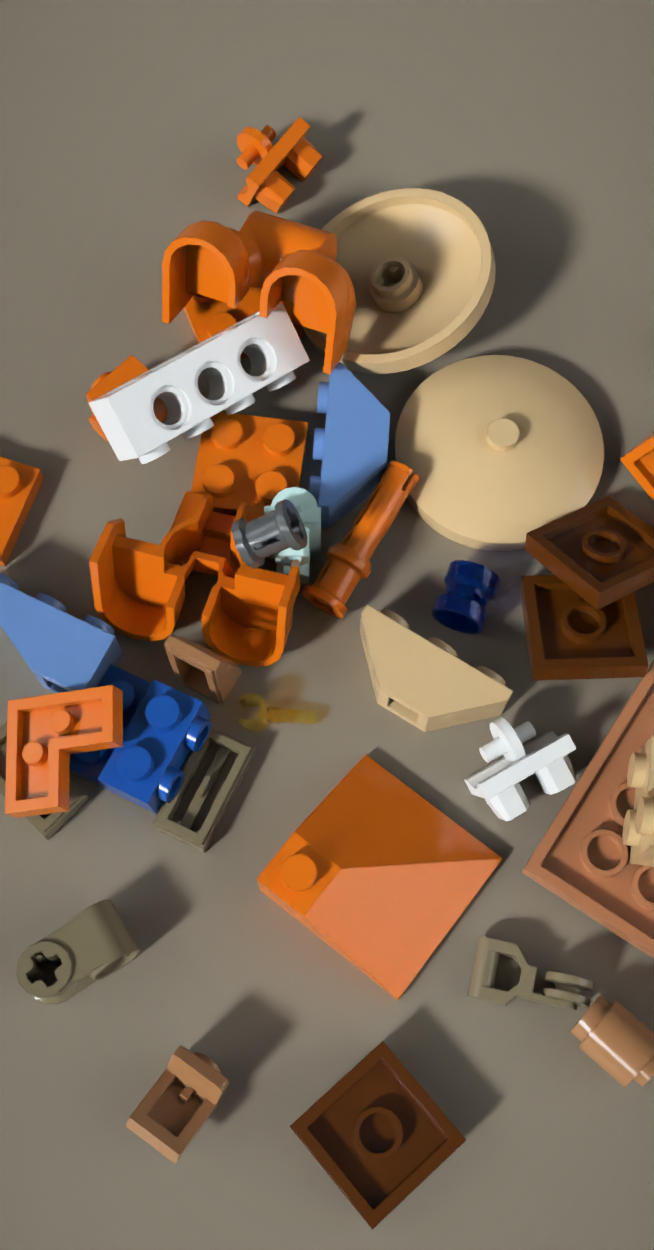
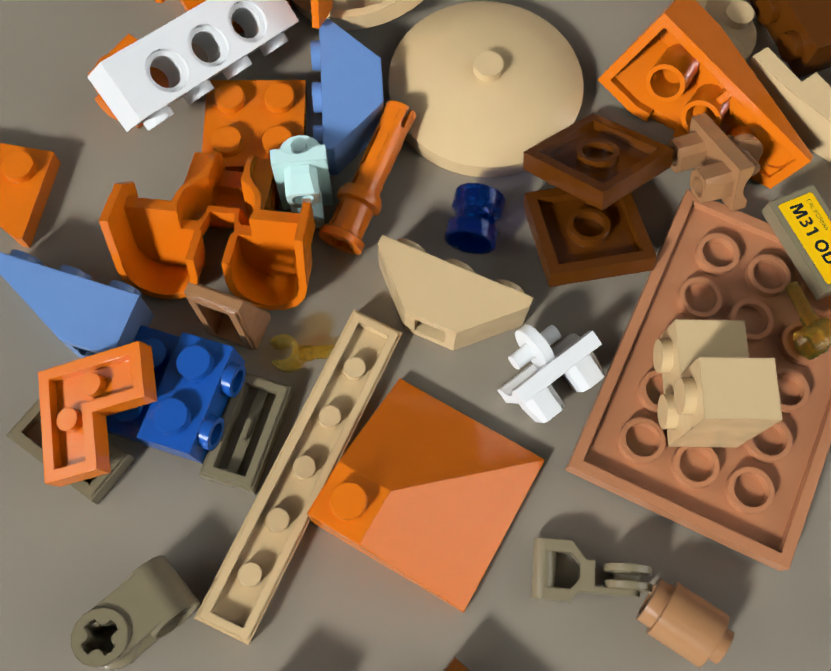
camera: 10 degrees left, 0 degrees up
(253, 838) = (296, 478): none -> tan tile
(269, 534) = (277, 173): dark grey bush -> none

